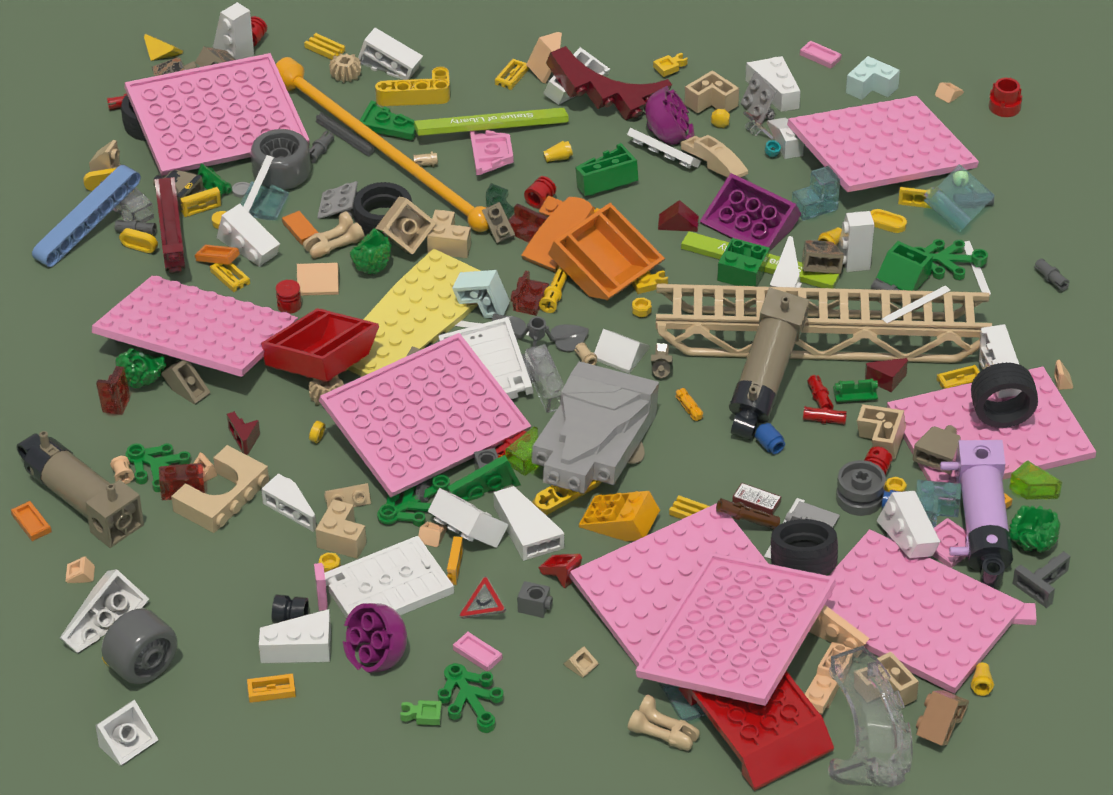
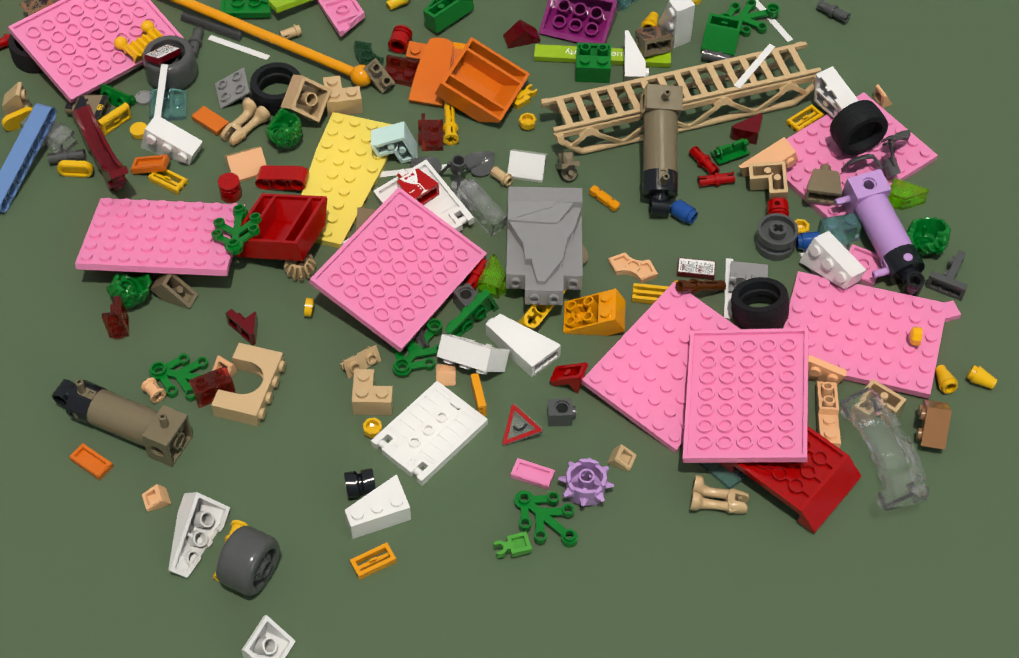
camera: 20 degrees left, 10 degrees up
(247, 137) = (136, 48): none -> yellow gear
(262, 348) = (236, 243): none -> green plant
(272, 146) = (162, 54): none -> tile
(286, 498) = (311, 378): white slope -> none
(320, 586) = (378, 454): bright pink tile -> none
(348, 299) = (282, 177): none -> red beam
(361, 160) = (239, 47): none -> white sticker
(379, 627) = (450, 480): magenta cylinder -> none
(485, 340) = (418, 185): none -> red torso
(527, 672) = (586, 482): none -> lavender brick
(693, 485) = (625, 265): none -> light nougat tile
(903, 399) = (776, 152): none -> light nougat slope
(964, 623) = (915, 335): none -> yellow tile
(1024, 687) = (981, 377): none -> yellow cone
(1027, 443) = (890, 164): none -> dark grey plant

